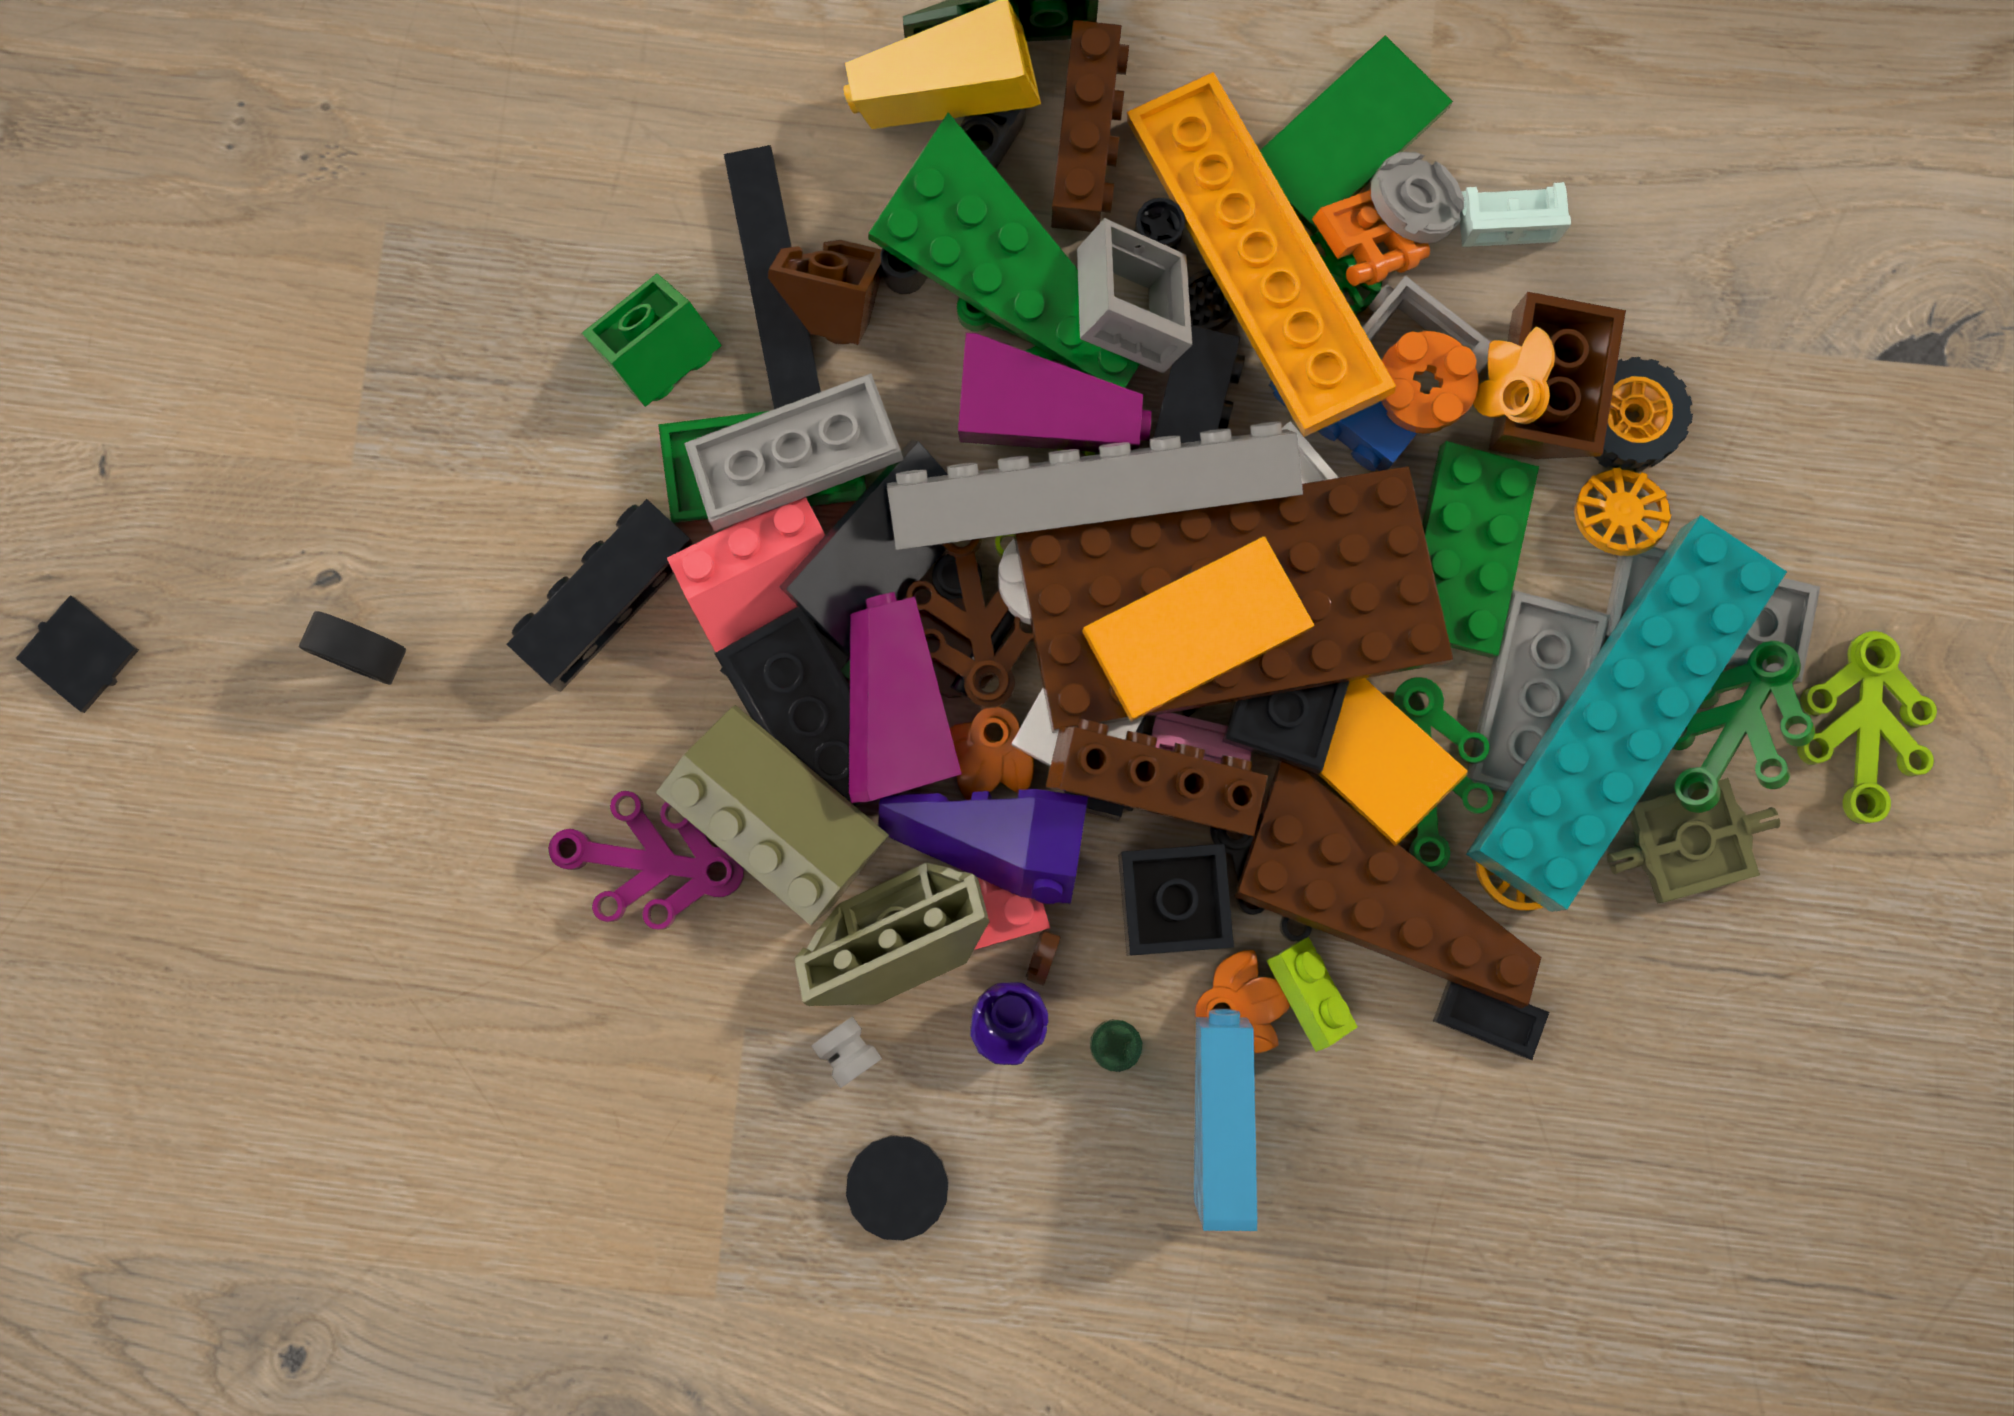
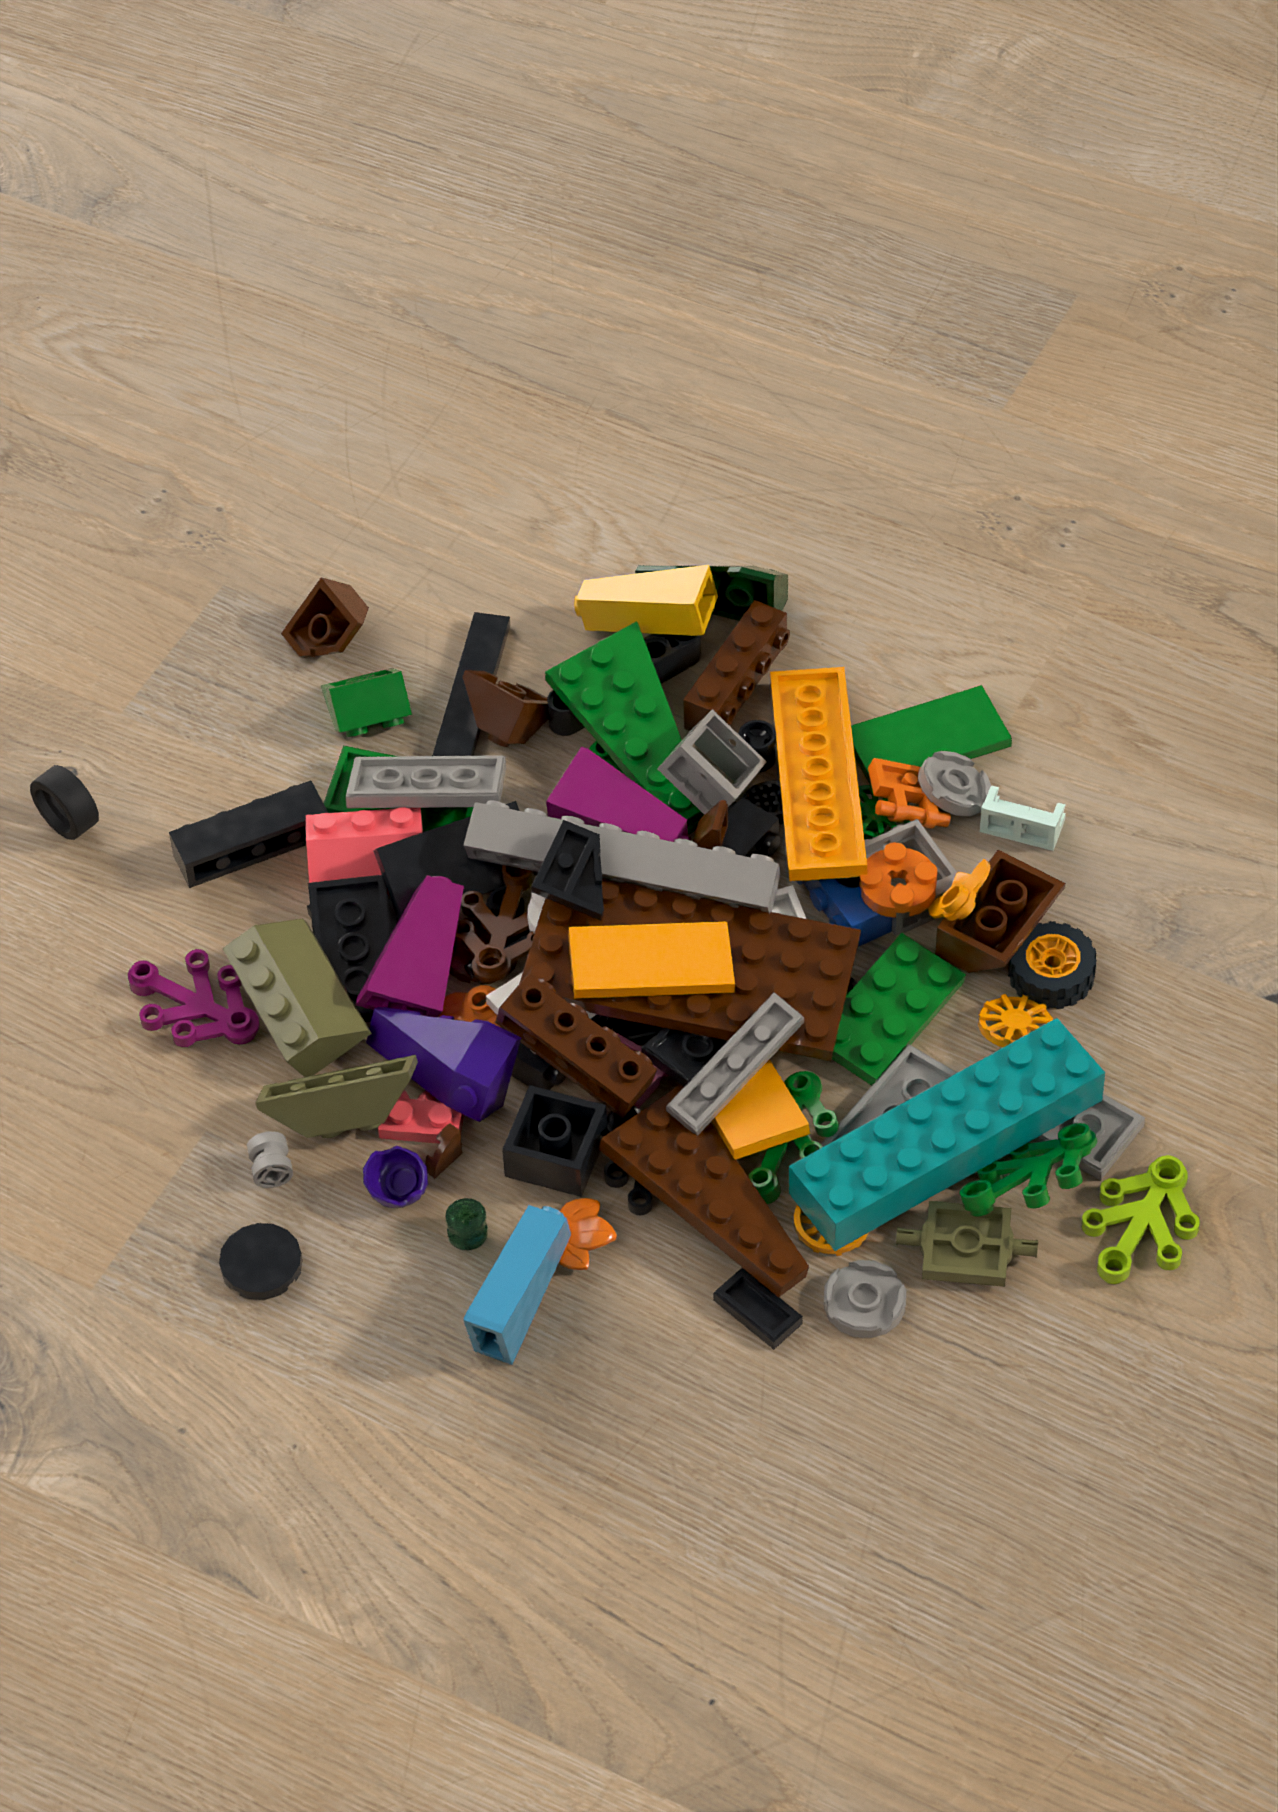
camera: 25 degrees right, 30 degrees down
(551, 240) = (326, 620): none -> reddish brown slope
(1053, 543) = (573, 871): none -> black wing
(1172, 392) = (712, 826): none -> reddish brown slope
(1312, 994) = (628, 1240): lime plate -> none
(1353, 727) = (735, 1064): none -> light grey tile
(1604, 955) = (864, 1299): none -> light grey tile

